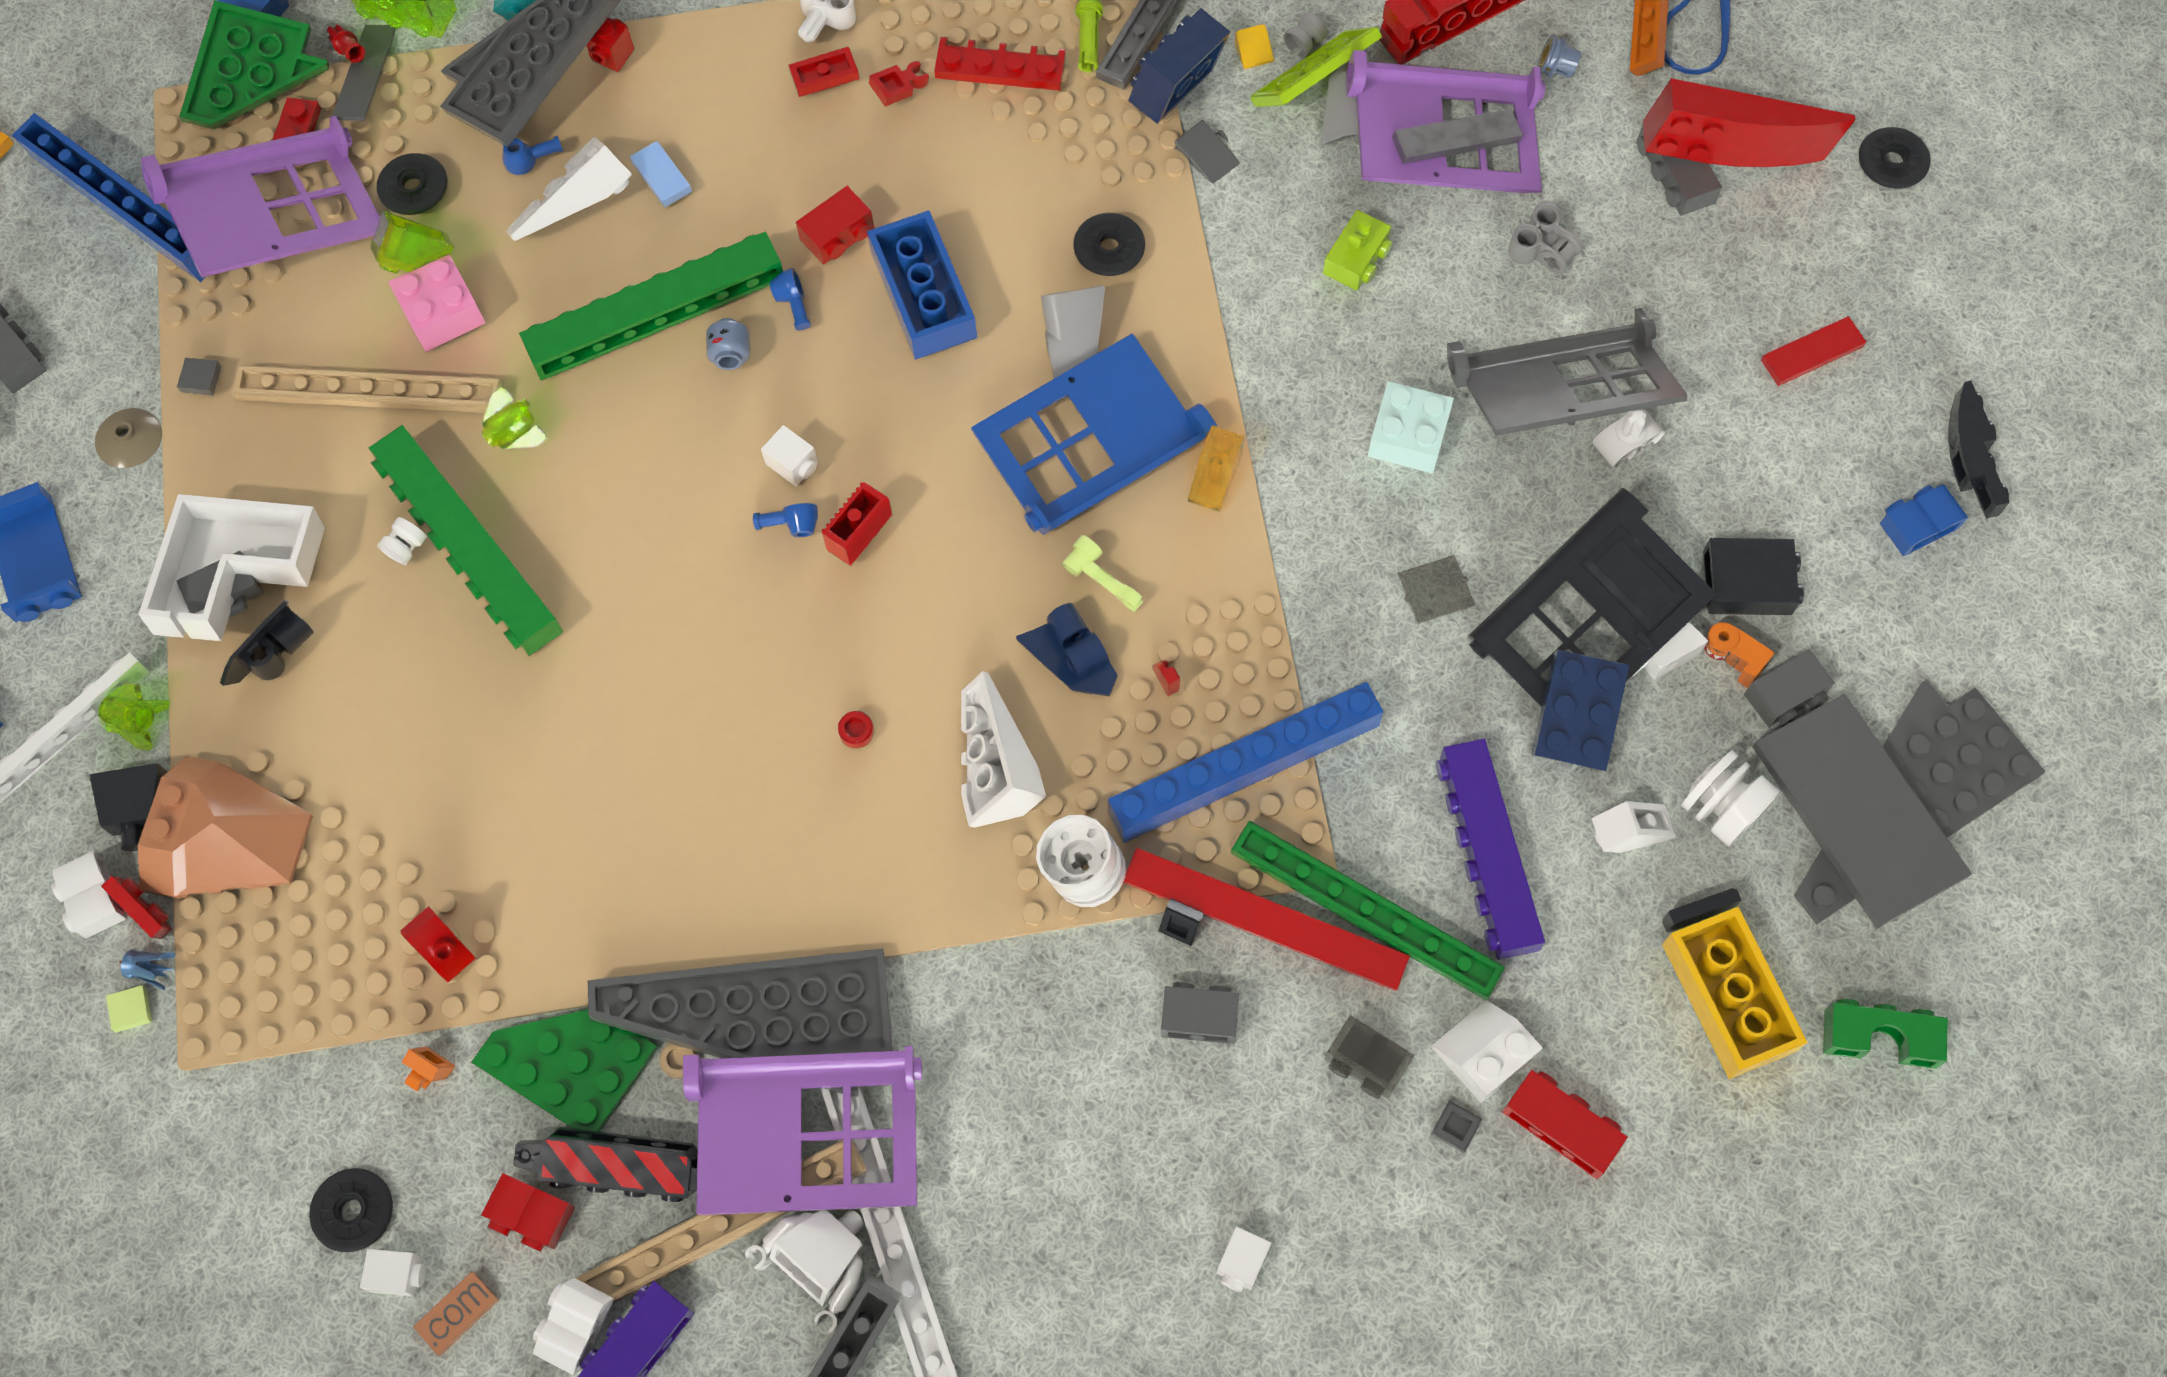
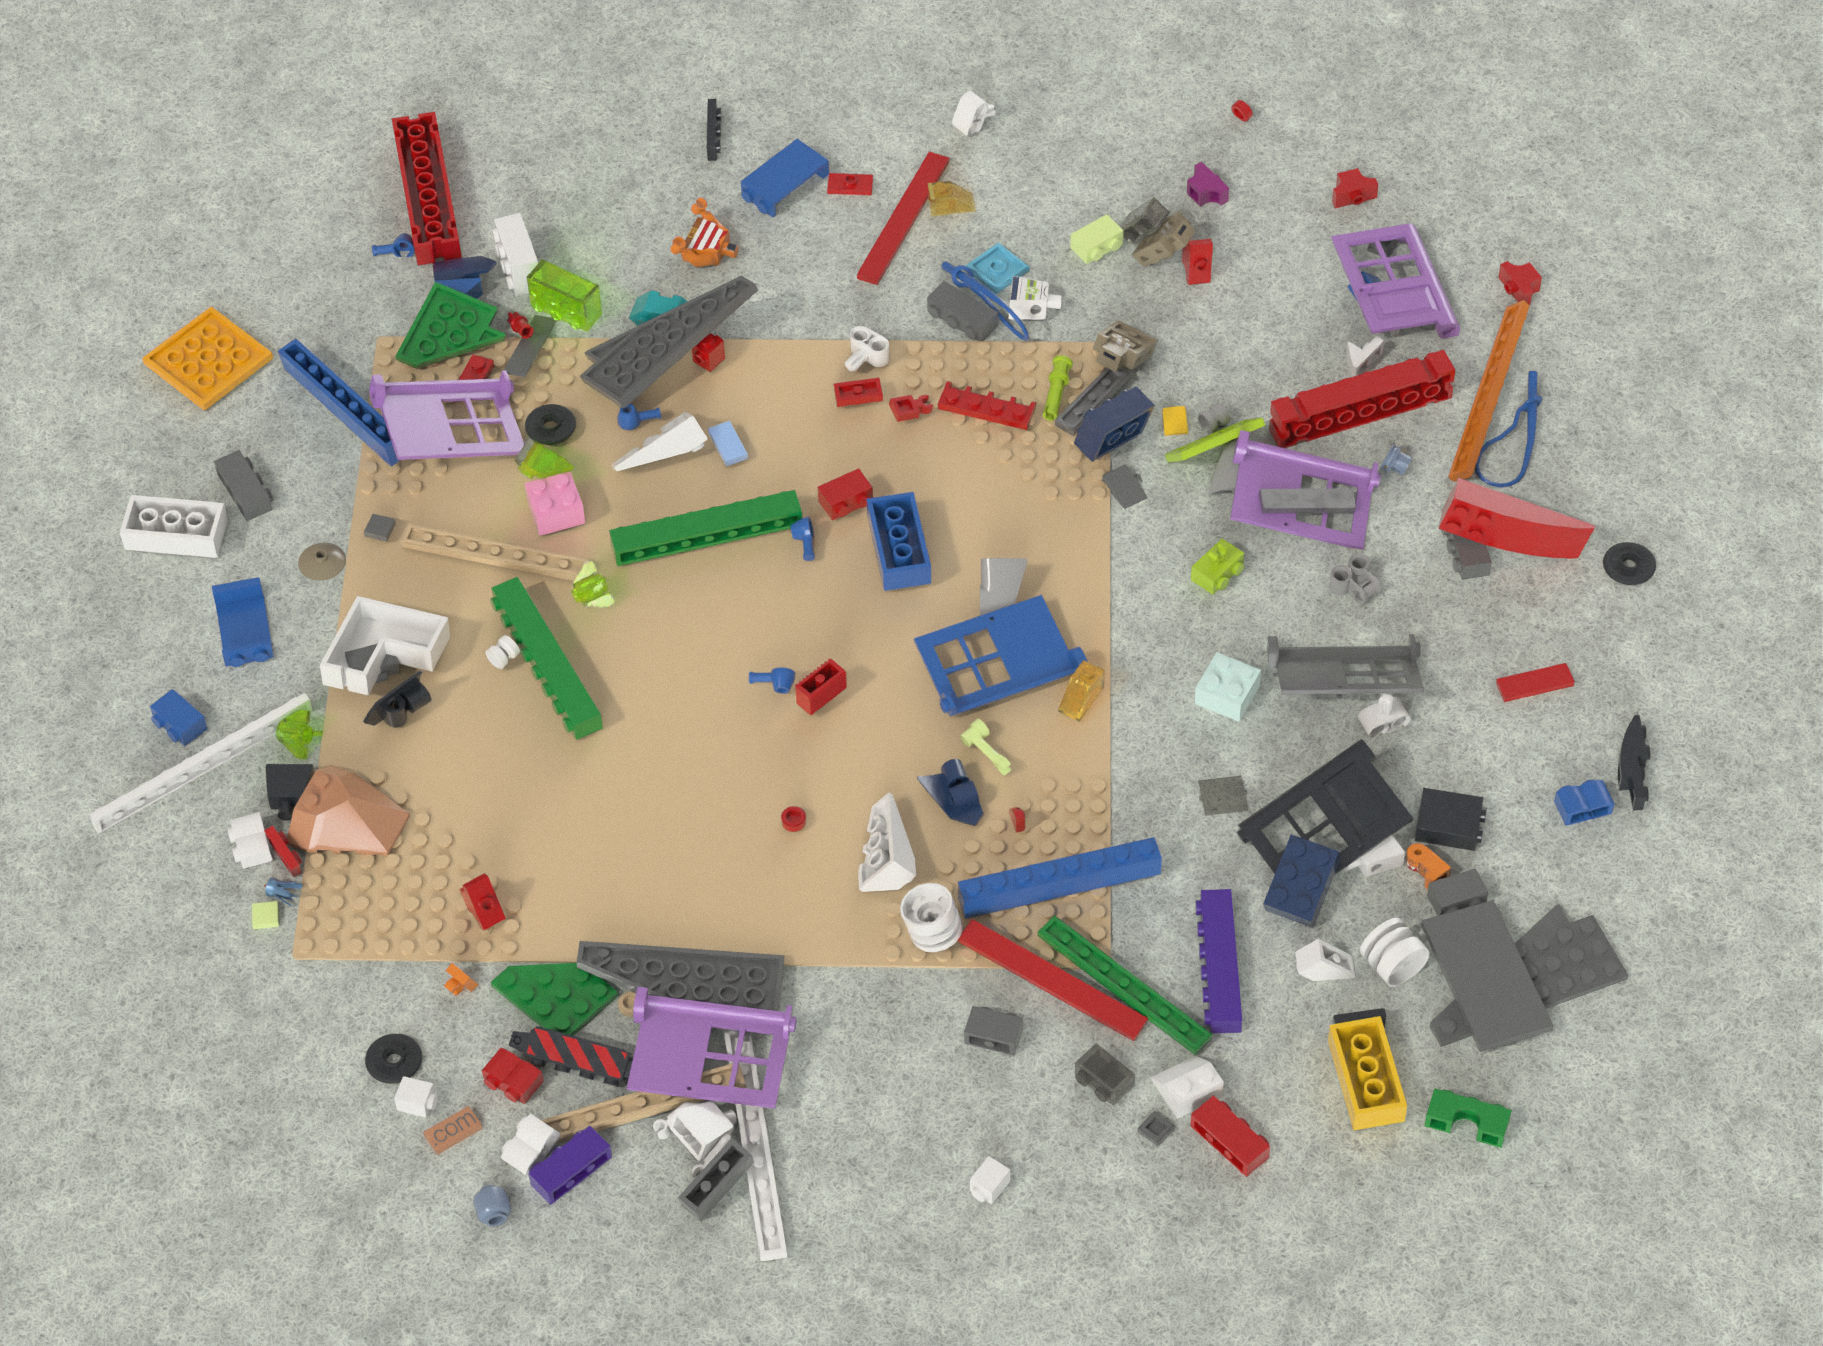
camera: 10 degrees right, 15 degrees down
(727, 344) = (753, 559): sand blue head -> none
(790, 456) = (782, 638): white brick -> none
(1109, 262) = (1044, 547): black wheel -> none
(1181, 922) = (993, 972): black tile -> none

